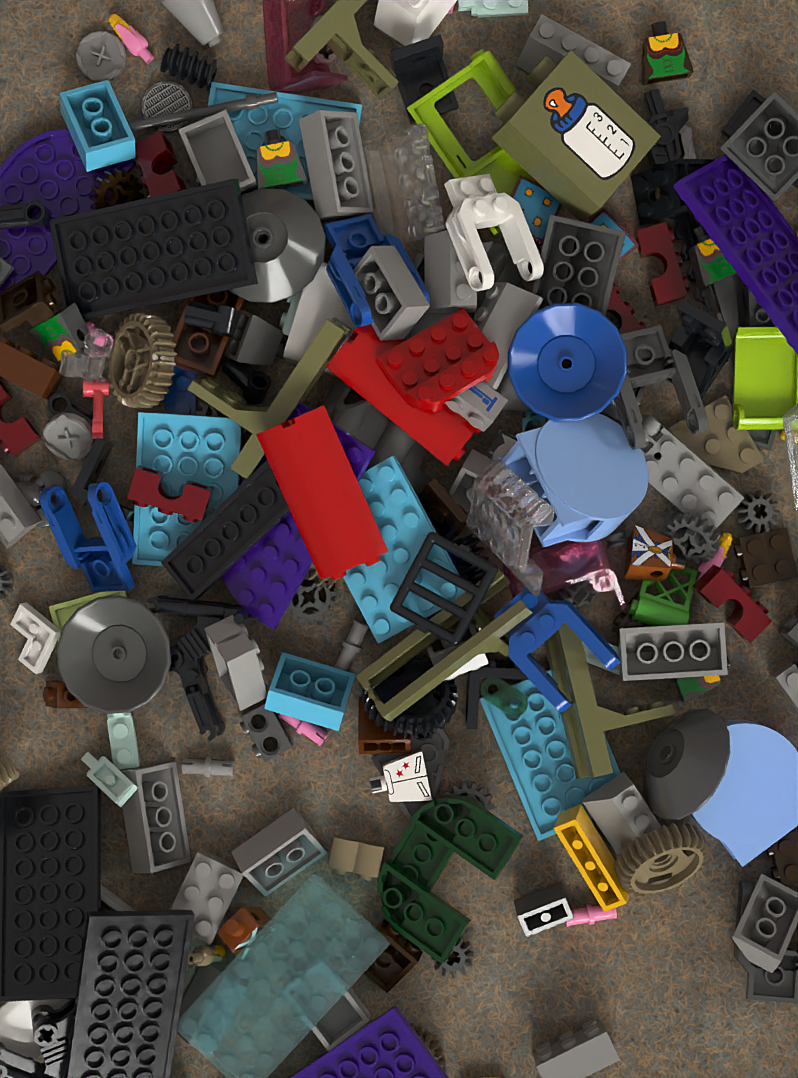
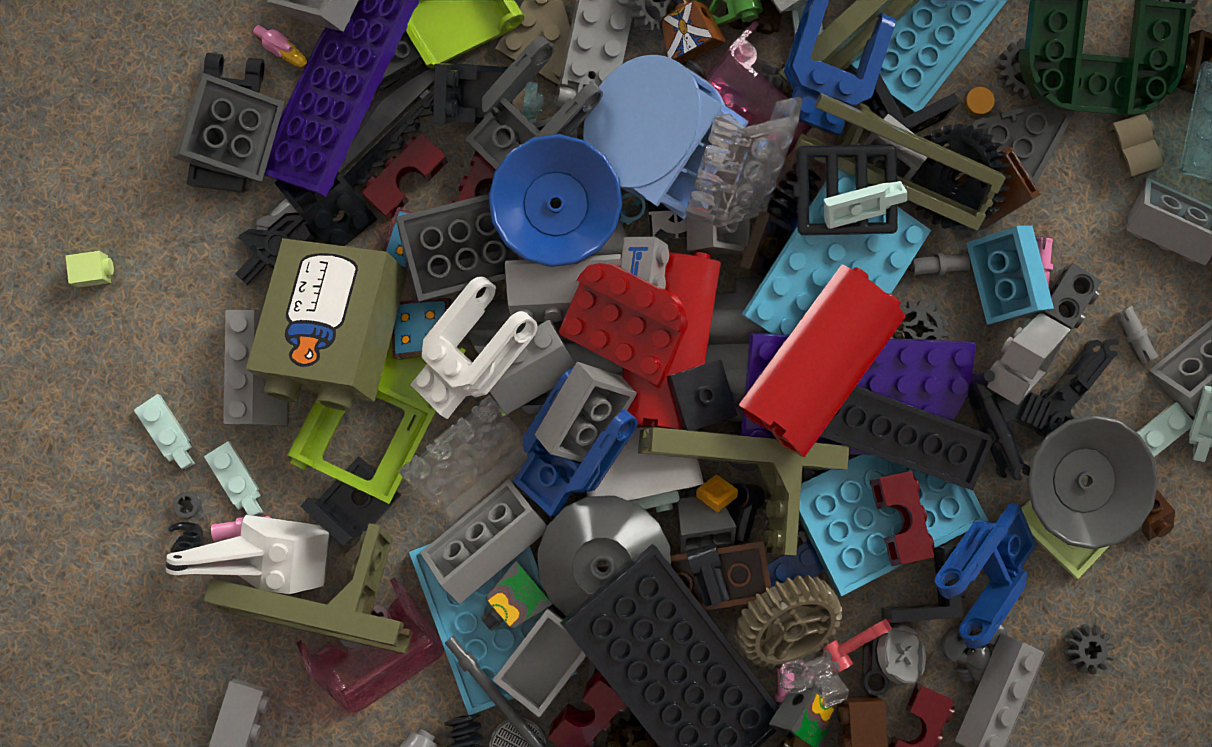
camera: 115 degrees left, 5 degrees down
(41, 637) = (1110, 570): white plate -> none
(271, 364) = (716, 493): none -> light orange tile
(349, 388) = (702, 395): none -> black plate
(404, 779) = (1038, 139): white torso -> none
(424, 591) = (862, 203): none -> light aqua hinge
(463, 756) = (979, 101): none -> light orange tile
(502, 697) = (905, 92): clear green plate -> none
(661, 395) = (533, 101): none -> clear light blue plate
(664, 56) = (200, 285): torso -> none
(708, 261) = (377, 131): torso -> none

